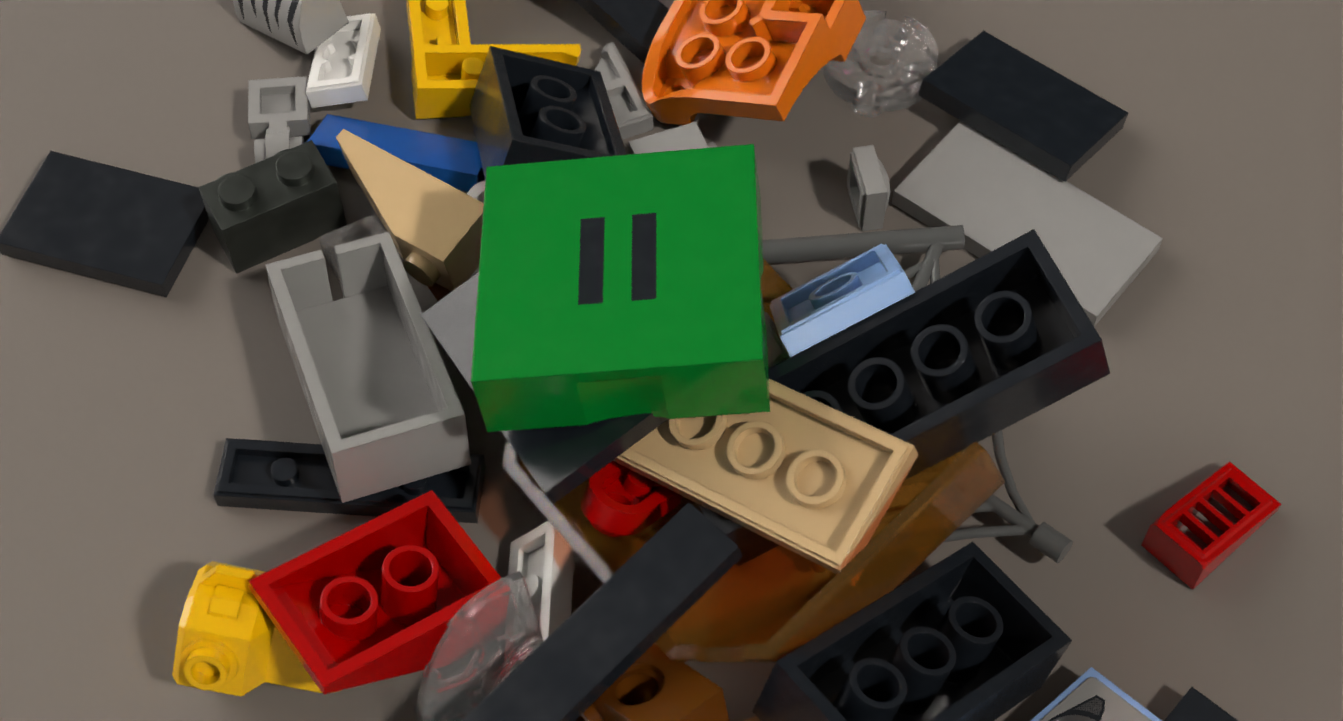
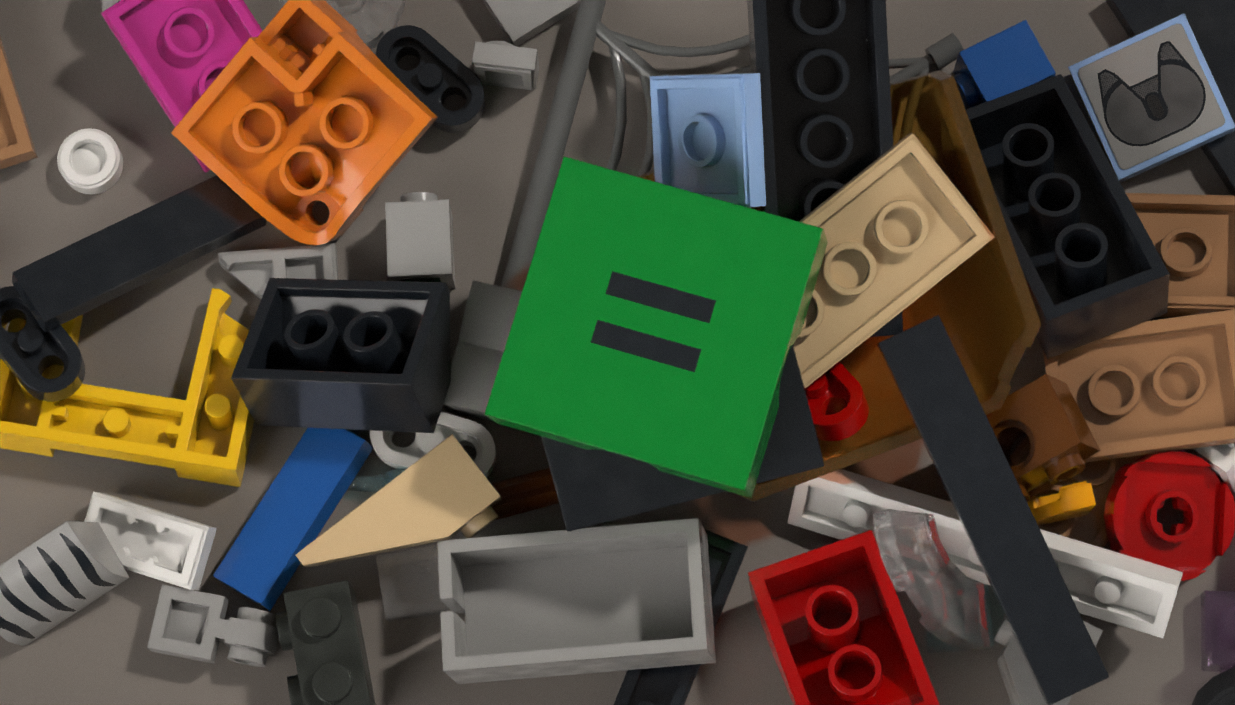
camera: 70 degrees left, 20 degrees up
(826, 144) = (435, 76): none -> black plate
(1064, 593) = (1001, 65): none -> blue brick

